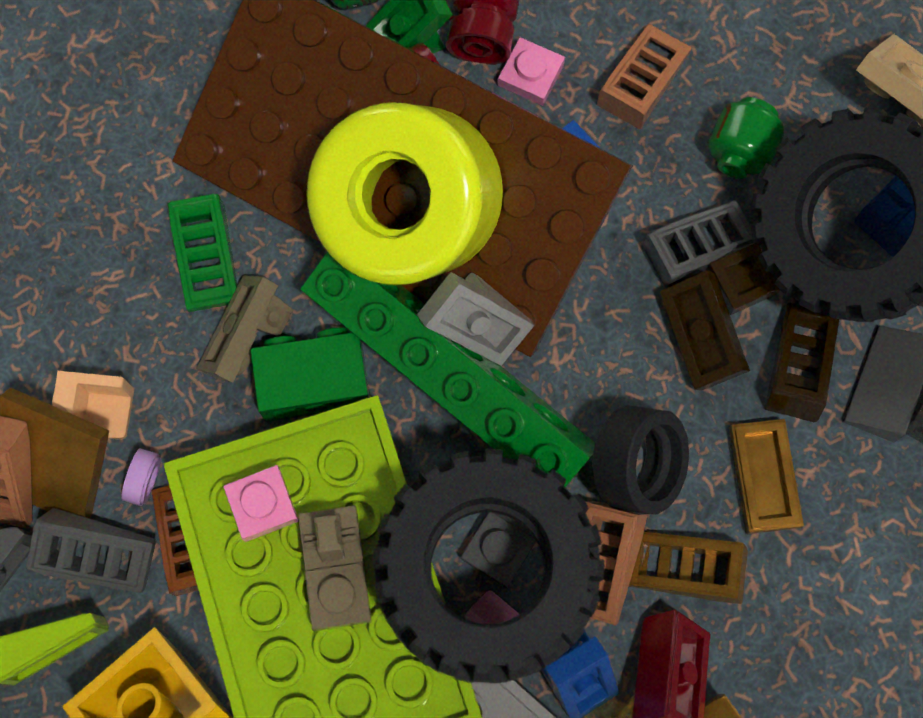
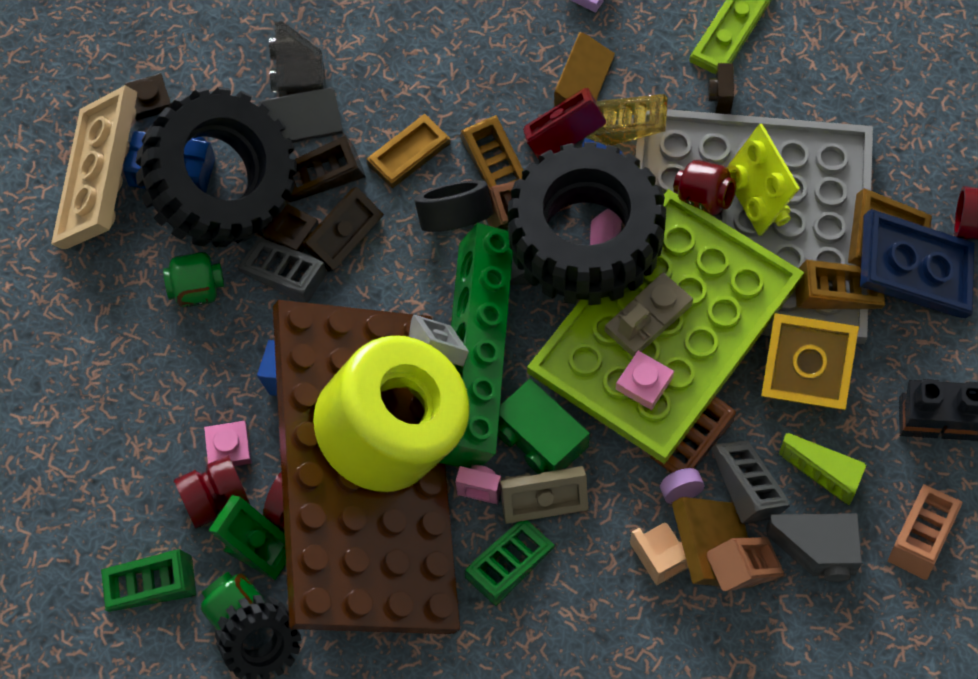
camera: 125 degrees left, 10 degrees down
(295, 271) = (479, 483): none -> bright pink plate
(628, 106) = (197, 384): nougat slope -> none

